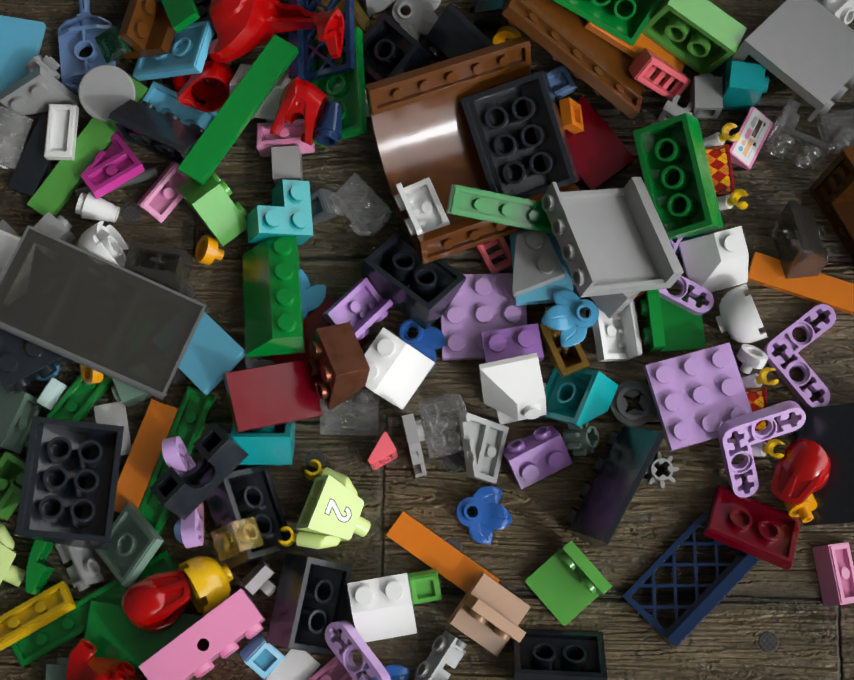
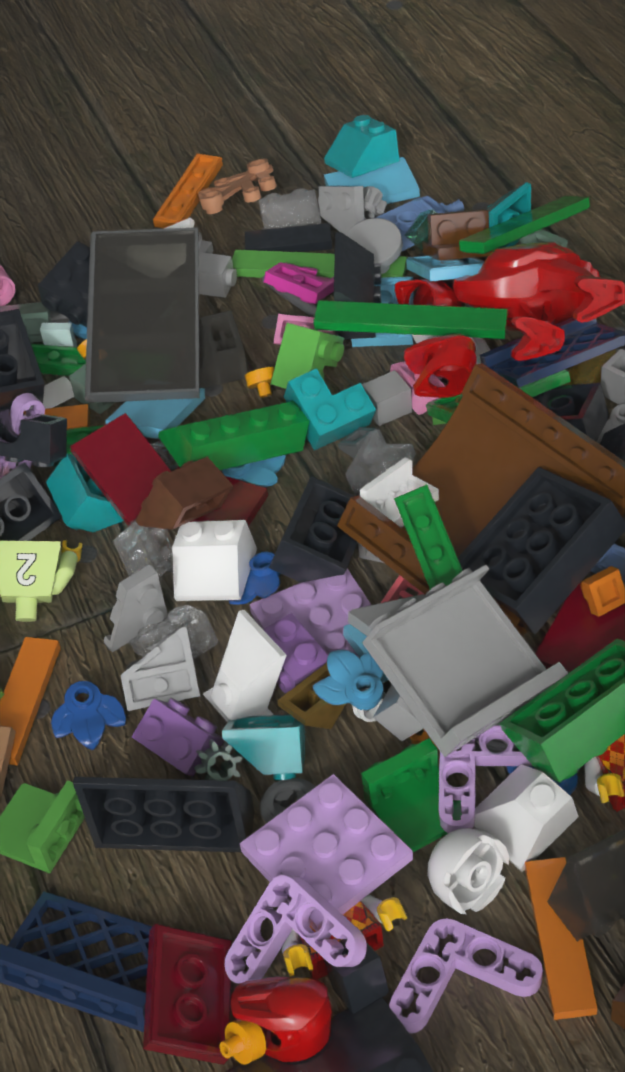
camera: 70 degrees right, 30 degrees down
(61, 132) = (314, 239): white tile -> none
(96, 209) = (257, 292): white cone -> none
(104, 242) = (222, 296): white cylinder -> none
(329, 126) = (441, 393): dark blue cone -> none
(360, 307) = (260, 505): medium lavender bracket -> none
(383, 452) = (104, 578): coral slope -> none
(619, 336) = (361, 747): white bracket -> none
(667, 471) = (217, 863): light grey gear -> none
(751, 358) = (419, 906): white tile -> none

